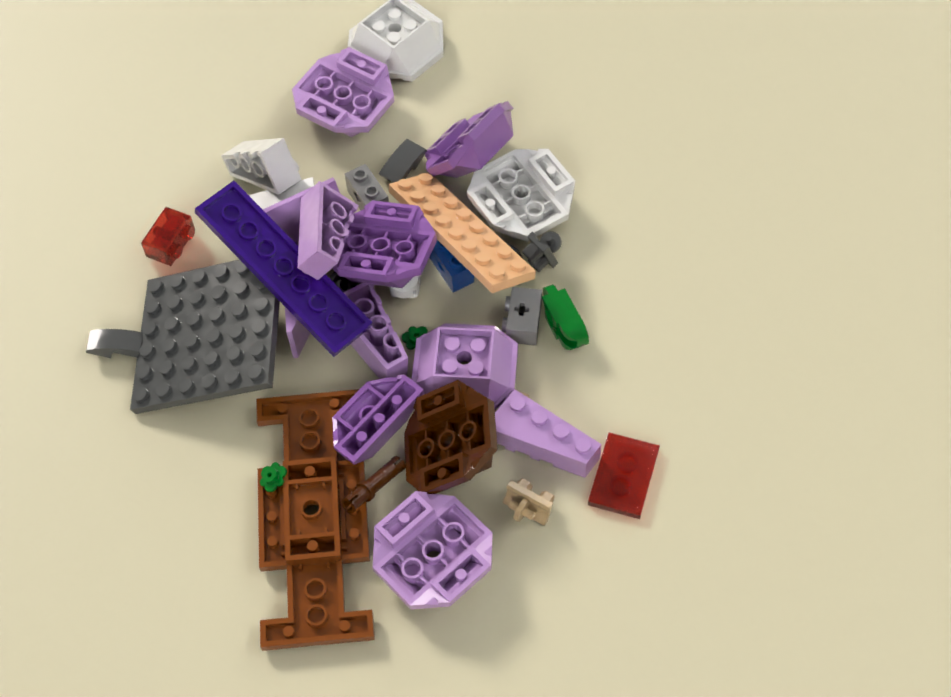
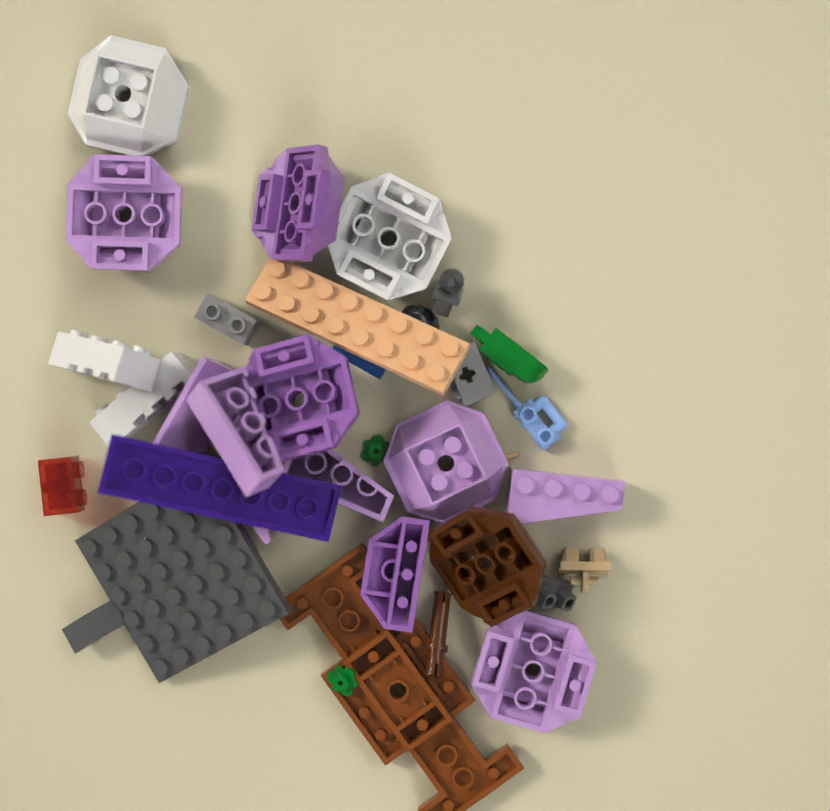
camera: 30 degrees left, 30 degrees up
(401, 162) = (238, 258): dark grey slope -> none
(485, 501) = (556, 594): none -> dark grey hips
(553, 369) = (529, 419): none -> light blue piece
(623, 475) = (652, 486): clear red tile -> none

